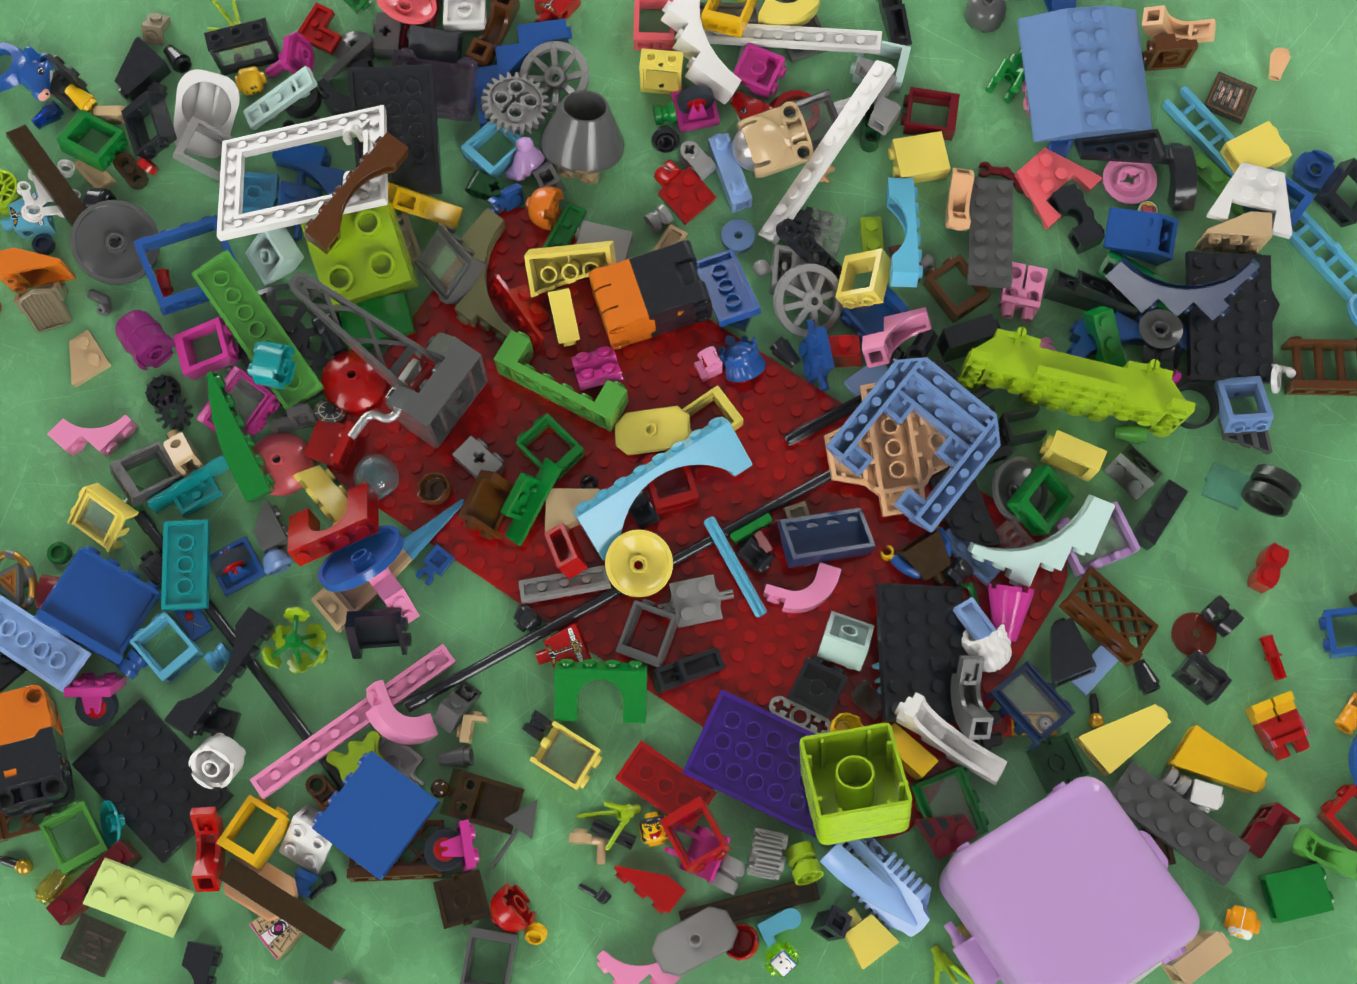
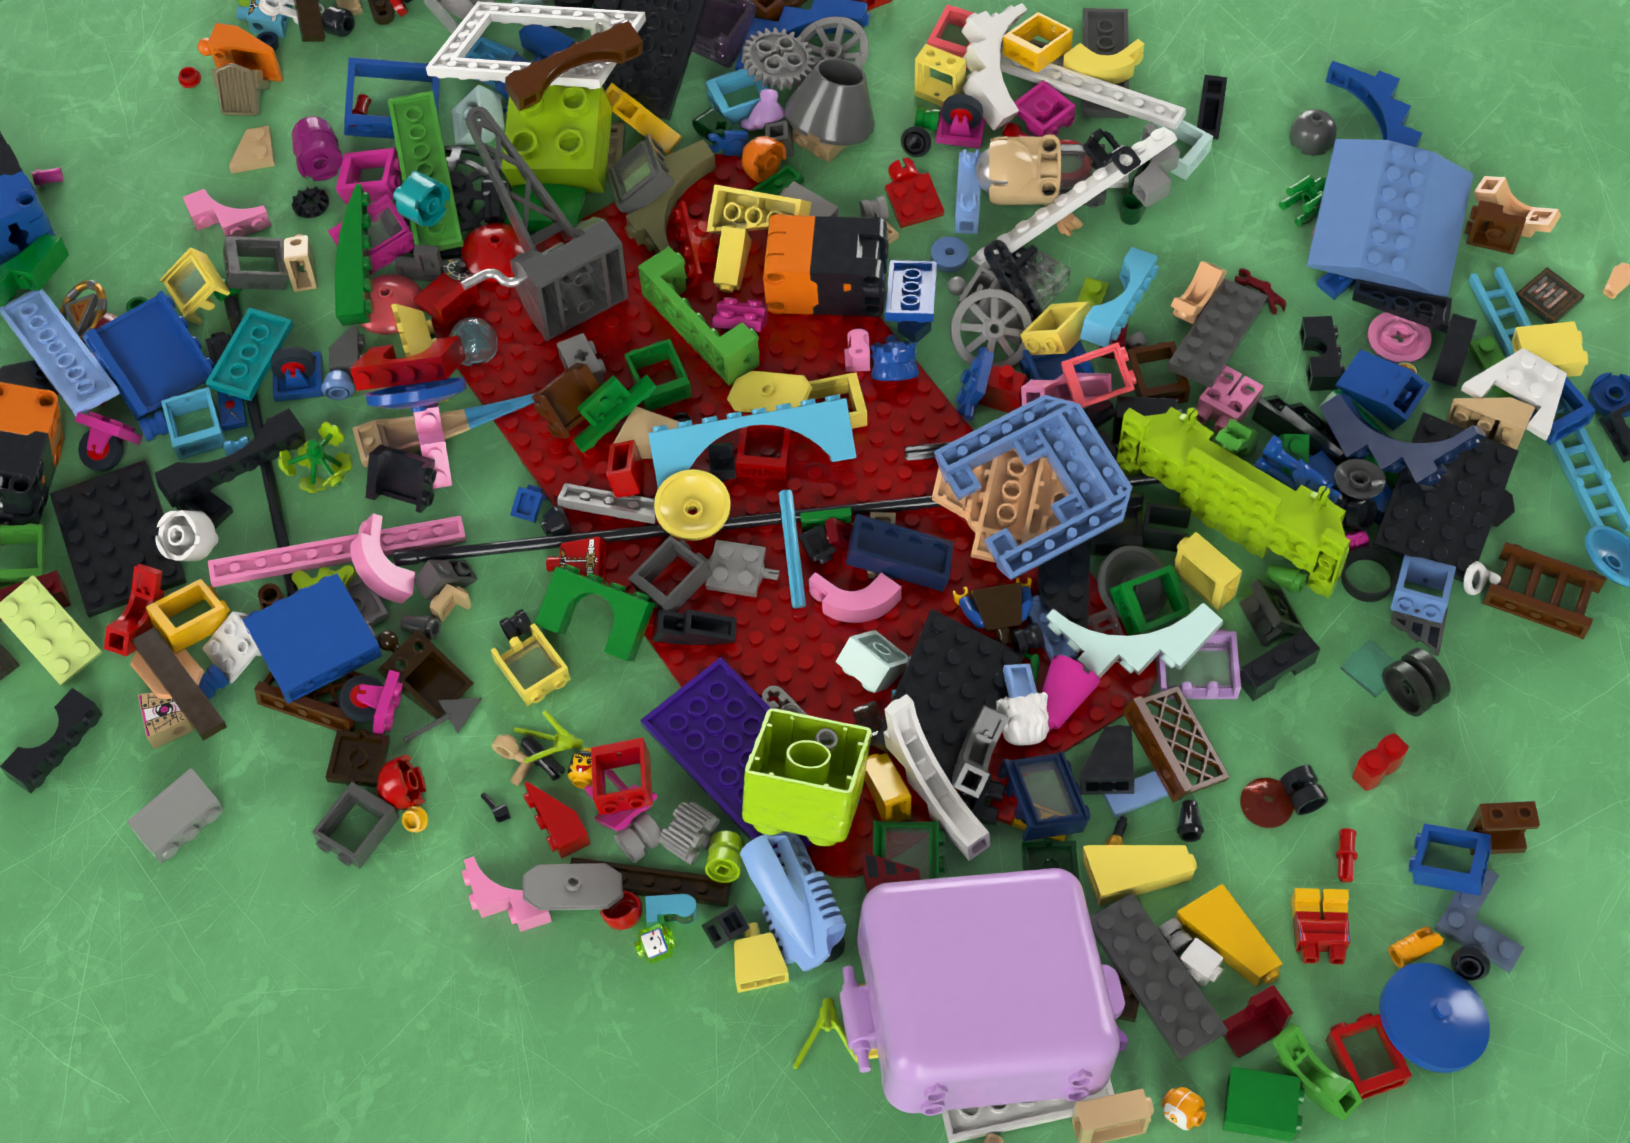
camera: 25 degrees right, 15 degrees down
(103, 300) = (295, 106): dark grey arm -> none
(105, 238) = (321, 55): dark grey dish -> none
(111, 822) = (59, 555): teal dish -> none
(166, 413) = (318, 218): black gear -> none
(192, 491) = (291, 294): teal bracket -> none
(328, 880) = (236, 692): black hand -> none
(434, 488) = (524, 371): reddish brown hair -> none
(437, 562) = (492, 441): blue plate -> none
(494, 608) = (528, 503): none -> blue bracket
(662, 782) = (612, 718): red plate -> none
(697, 161) = (939, 169): light grey piece -> none
(784, 351) = (945, 373): black cone -> none
(818, 686) = (823, 689): black plate -> none
(846, 98) = (1101, 158): none -> black piece
(853, 742) = (826, 736): none -> light grey hinge
(913, 343) = (1072, 381): none -> coral window
(920, 157) = (1176, 242): light yellow brick -> none
(935, 98) = (1211, 190): dark red window -> none
(1047, 174) = (1309, 299): coral wing -> none
(1054, 332) = (1238, 438): none -> bright green slope
(1124, 348) = (1302, 472): none -> blue piece
(1202, 677) = (1253, 843): black window -> none

